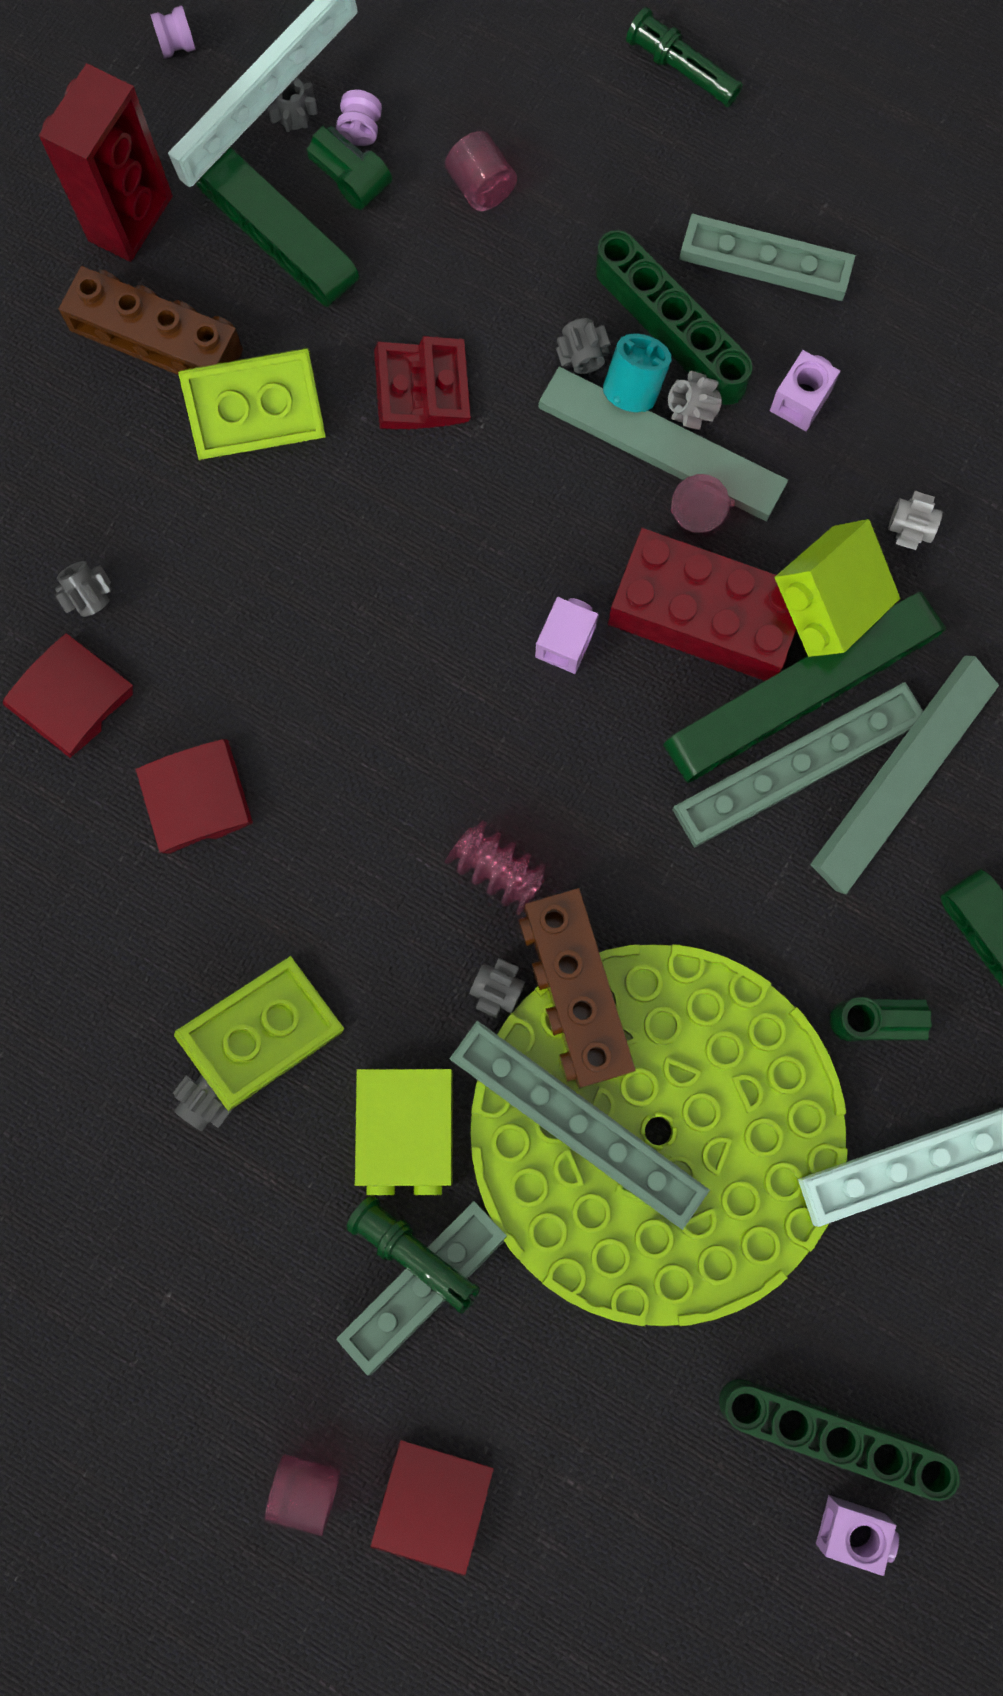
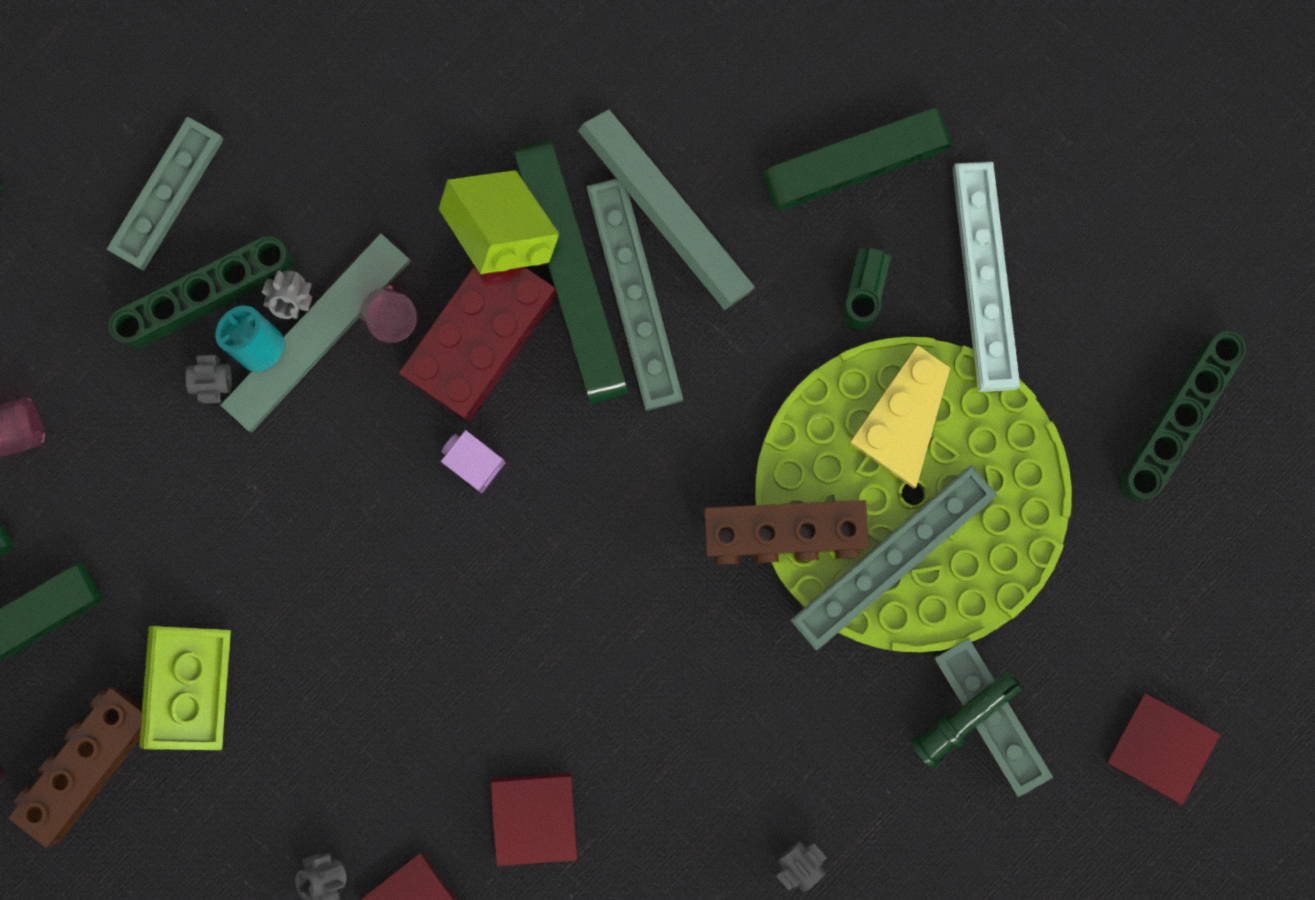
camera: 80 degrees left, 5 degrees up
(258, 1033) = (755, 805): lime tile -> none
(302, 1495) = (1132, 850): clear pink piece -> none
(404, 1130) = (864, 702): lime brick -> none
(422, 383) = (201, 531): dark red slope -> none
(497, 987) = (765, 596): dark grey gear -> none
(498, 866) = (662, 569): clear pink piece -> none
(745, 1098) = (904, 417): none -> light yellow wing
(802, 406) = (313, 207): lavender brick -> none
(836, 1528) = (1242, 430): lavender brick -> none
(915, 520) = (448, 136): light grey gear -> none

